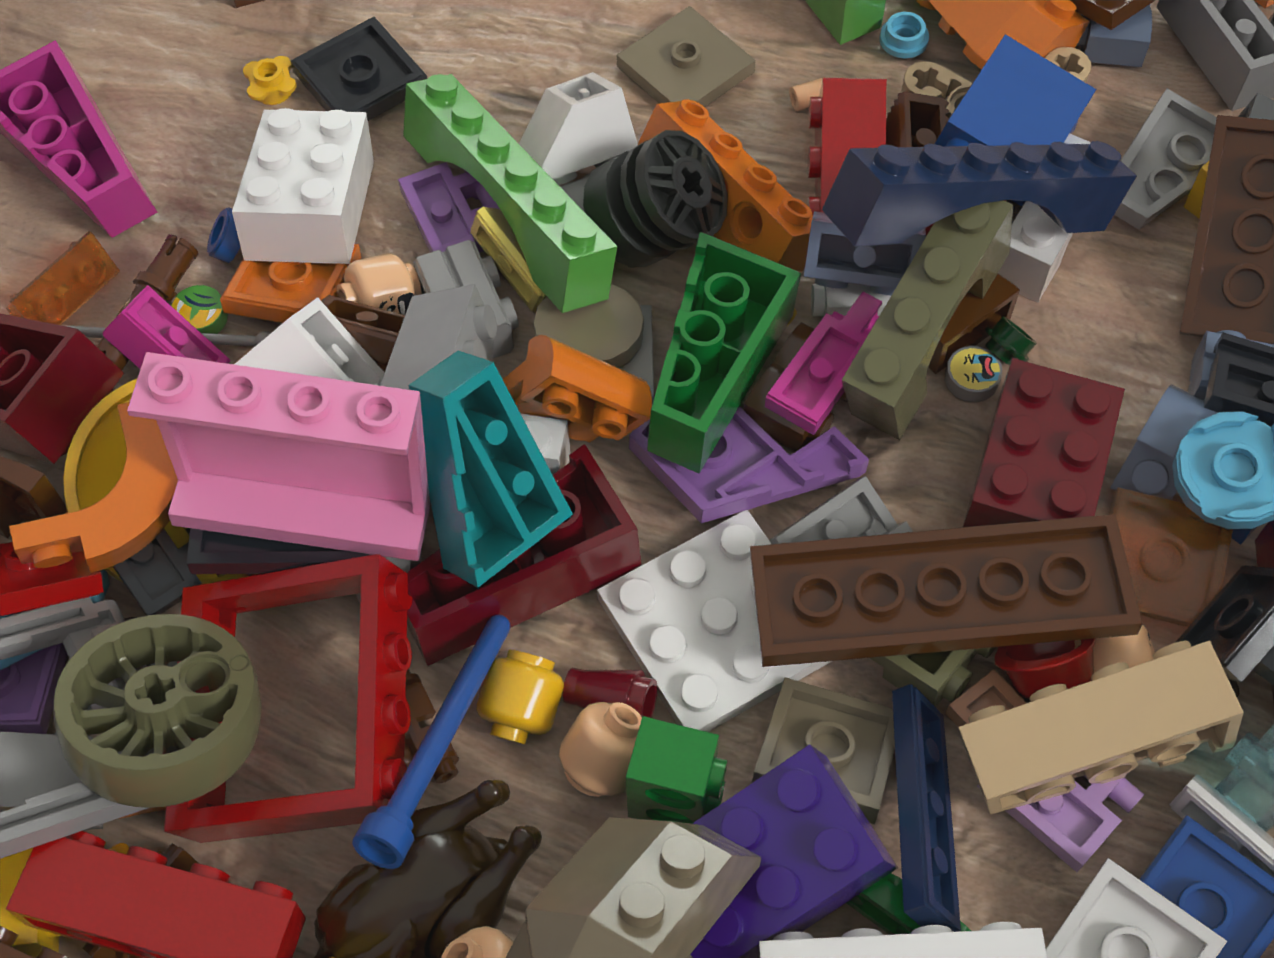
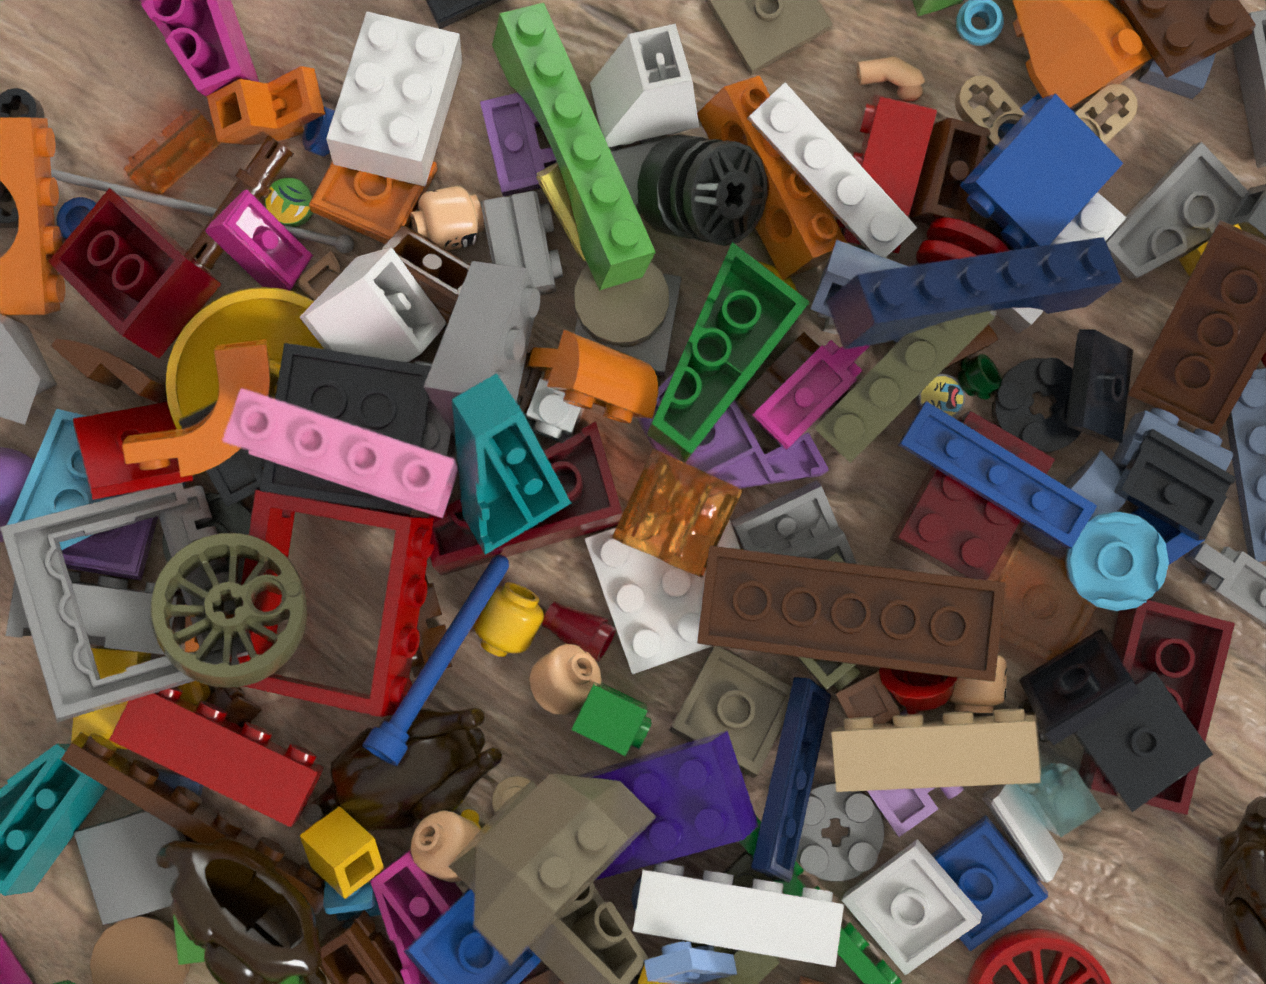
camera: 10 degrees right, 25 degrees up
(141, 219) = (253, 110): none -> orange brick
(702, 523) = (676, 513): none -> clear orange slope
(767, 140) = (831, 172): none -> white plate
(1016, 852) = (856, 850): none -> light grey plate
(1068, 402) = (997, 475): none -> blue plate
(1098, 336) = (1014, 397): none -> black plate
(1146, 317) = (1099, 386): none -> black plate

